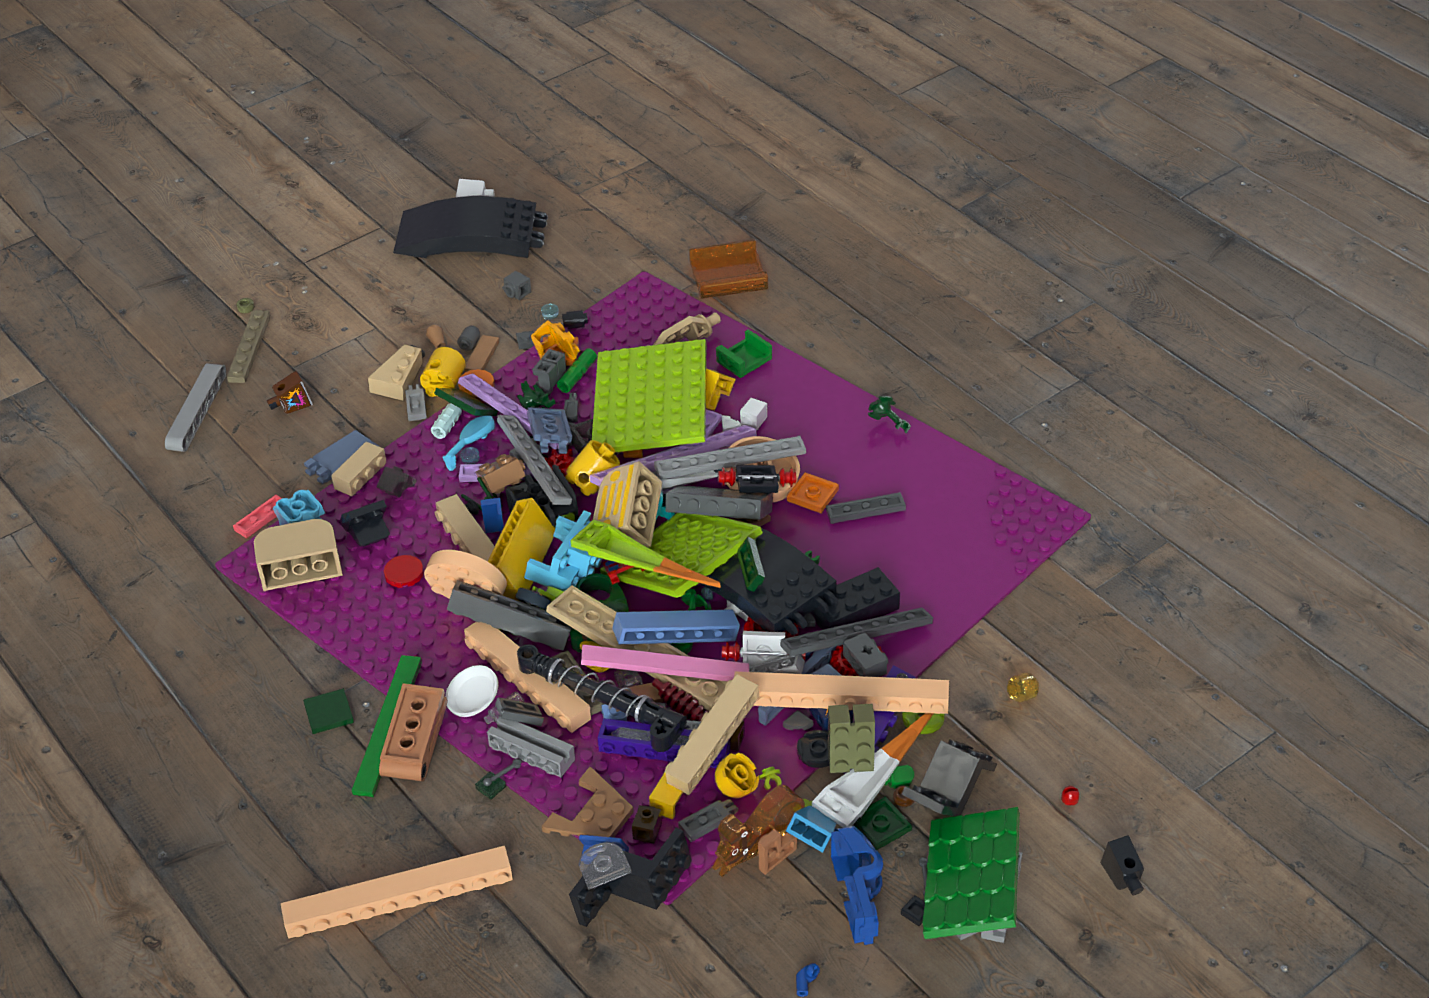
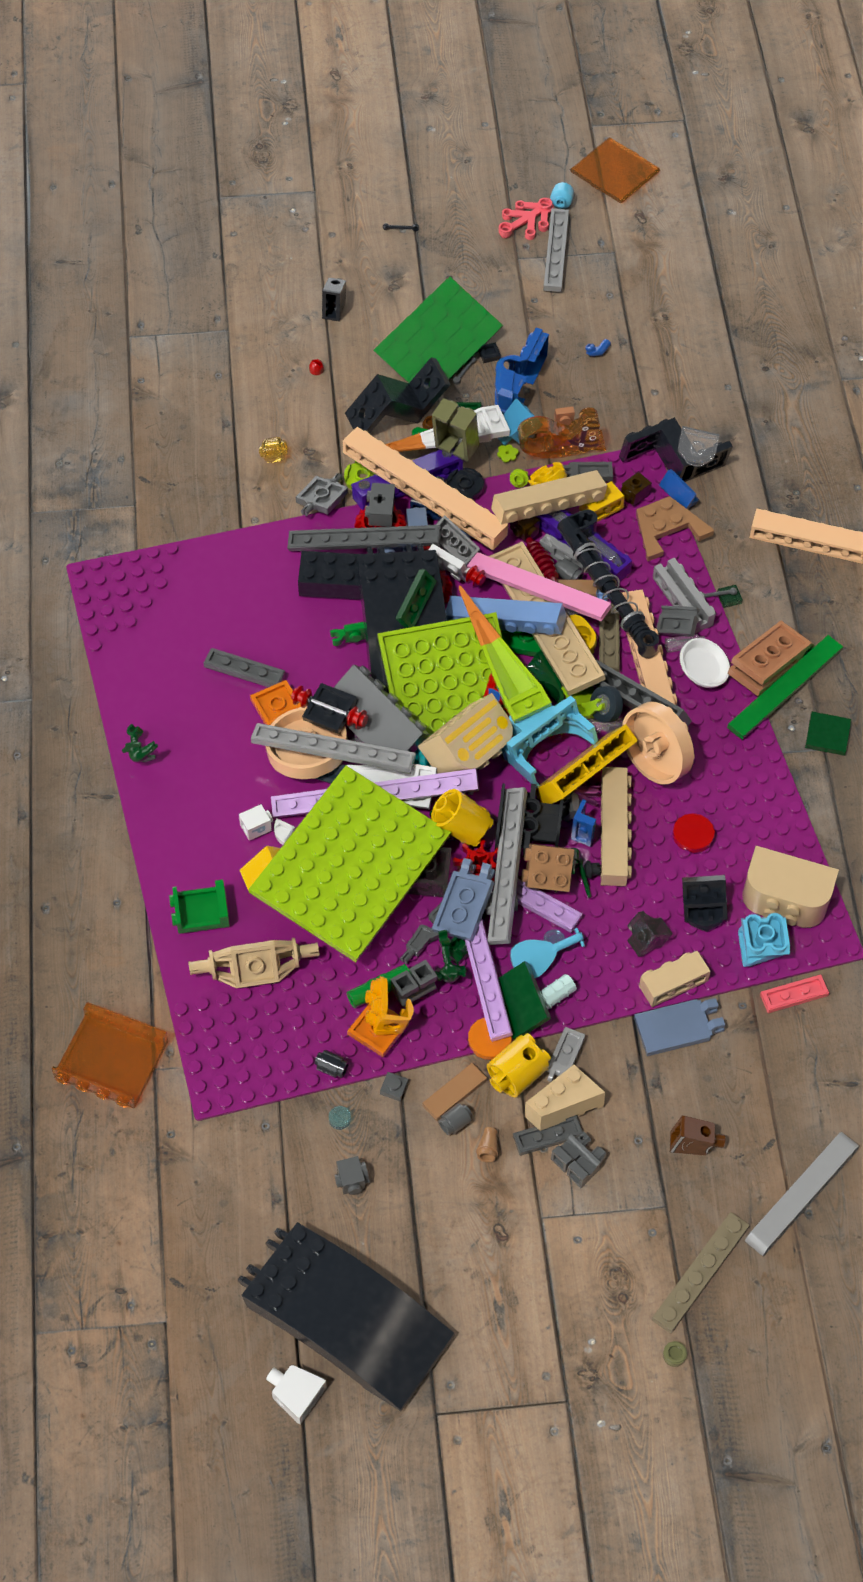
camera: 150 degrees left, 15 degrees up
(369, 354) = (577, 1159): none -> dark grey hips
(939, 664) = (322, 494): none -> dark grey plate

